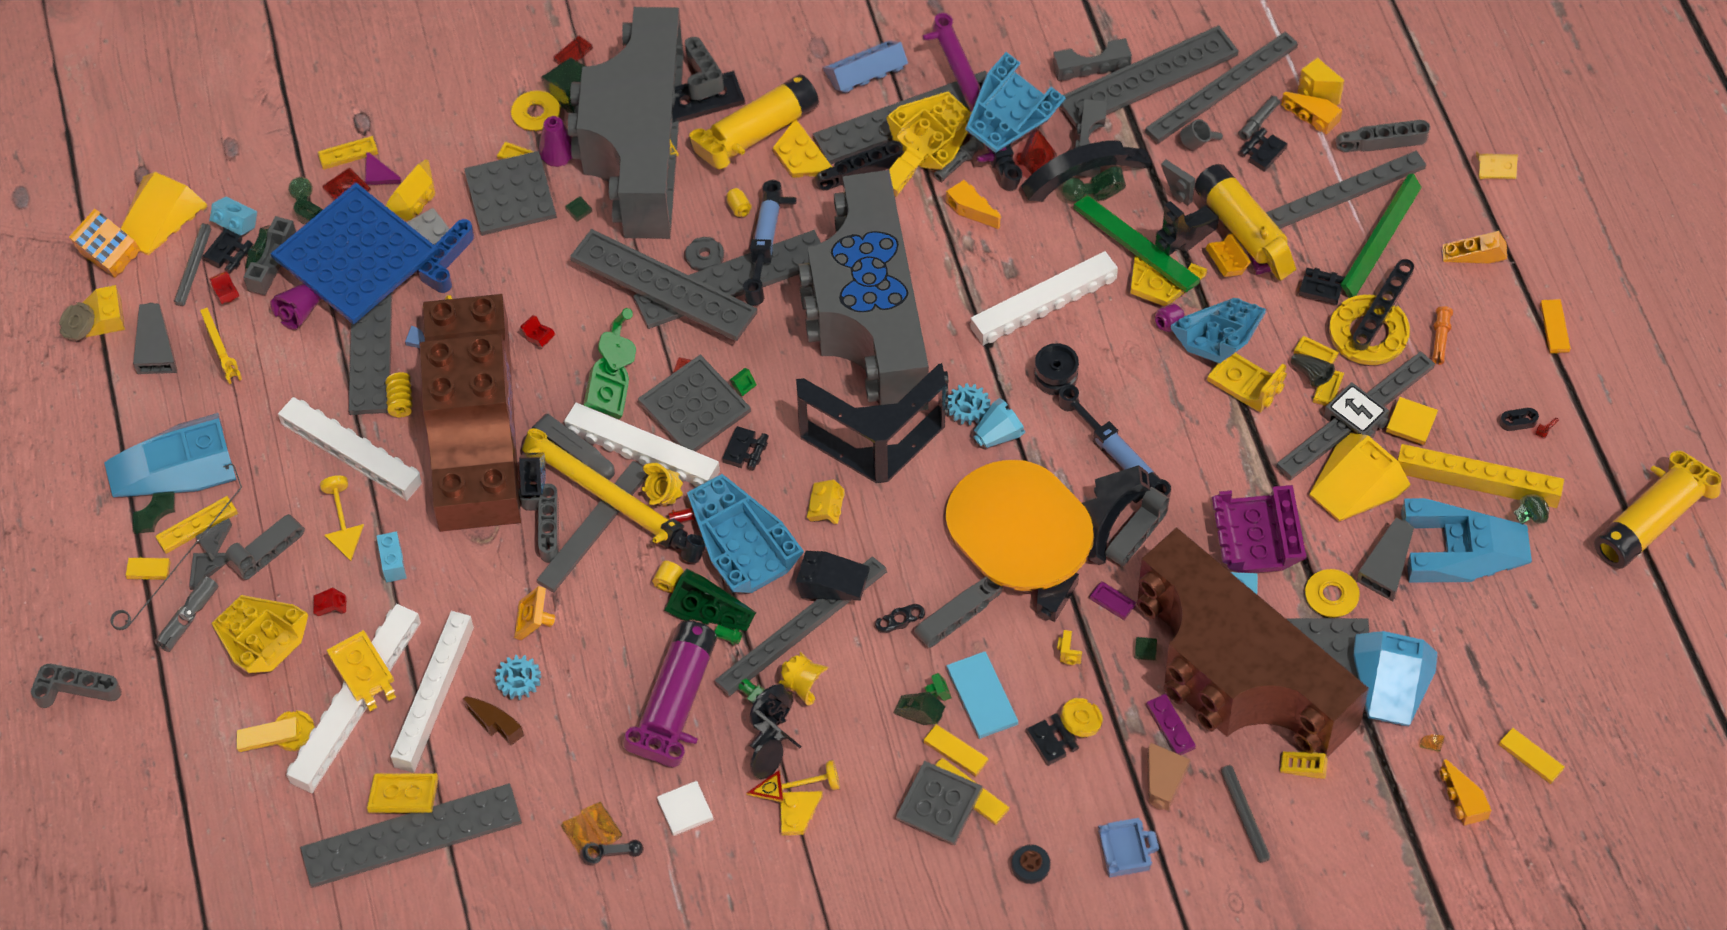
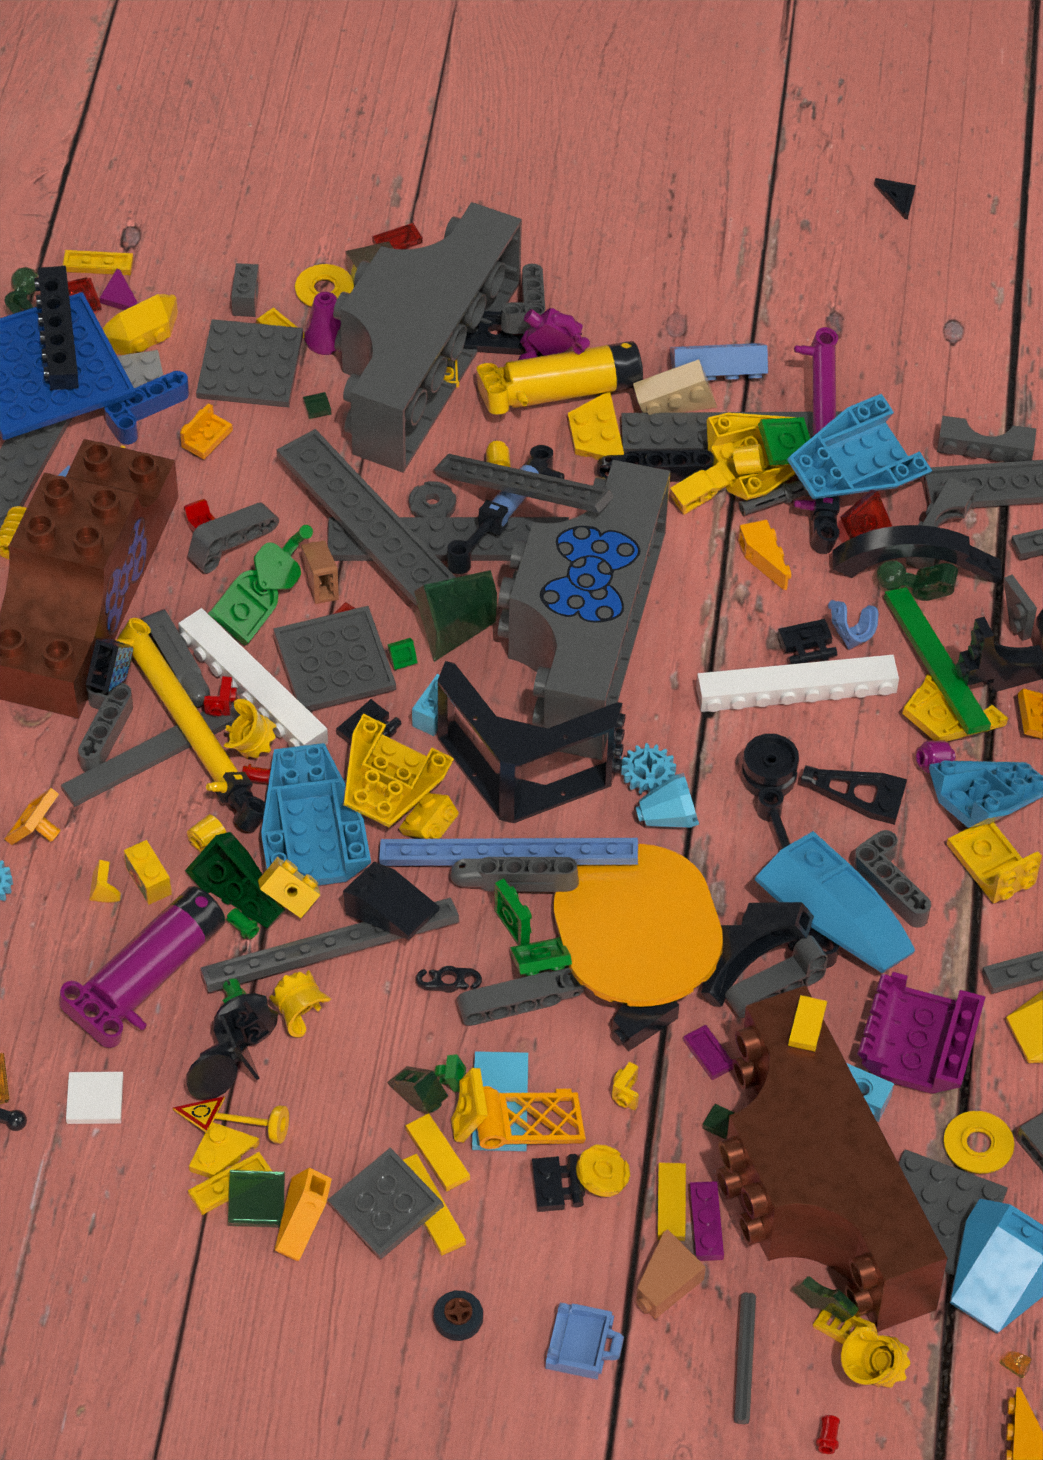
camera: 20 degrees right, 5 degrees down
(373, 257) = (58, 328): none -> black brick
(477, 135) = (245, 290): none -> dark grey brick
(504, 261) = (204, 432): none -> light orange bracket
(565, 335) = (227, 532): none -> dark grey beam
(606, 646) = (100, 889): none -> yellow tile
(629, 472) = (221, 704): none -> red bracket
(638, 622) = (147, 872): none -> yellow brick
(650, 339) = (320, 571): none -> nougat slope
(736, 91) = (552, 334): none -> magenta torso
(753, 594) = (289, 886): none -> yellow brick
(769, 334) = (456, 610): none -> clear green wedge
(778, 217) = (524, 483): none -> dark grey plate
(783, 480) = (388, 776): none -> yellow wedge
(787, 413) = (426, 709): none -> medium azure brick
(817, 832) = (215, 1190): none -> yellow tile
(843, 836) = (256, 1198): none -> clear green tile
(846, 101) = (676, 390): none -> tan wedge
(882, 830) = (302, 1211): none -> light orange slope
(898, 505) = (449, 851): none -> medium blue plate
(913, 520) = (522, 873): none -> dark grey piece
(925, 551) = (512, 913): none -> green plate
(930, 138) = (748, 459): none -> yellow piece
(950, 112) = (782, 437): none -> green plate
(961, 575) = (540, 956): none -> green plate
(967, 707) = (471, 1106): none -> yellow tile
(990, 714) = (496, 1129): none -> light orange piece
(1032, 259) = (806, 636): none -> black plate
(1053, 237) = (864, 628): none -> medium blue helmet
(1139, 720) = (672, 1199): none -> yellow tile
(1148, 357) = (888, 796): none -> black plate
(1165, 455) = (840, 900): none -> dark azure wedge
(1168, 414) = (913, 904): none -> dark grey beam
(1192, 554) = (807, 1023): none -> yellow tile
(1289, 749) = (824, 1298): none -> tile
(1331, 851) = (828, 1436): none -> red pin
(1338, 778) = (874, 1358): none -> yellow hat

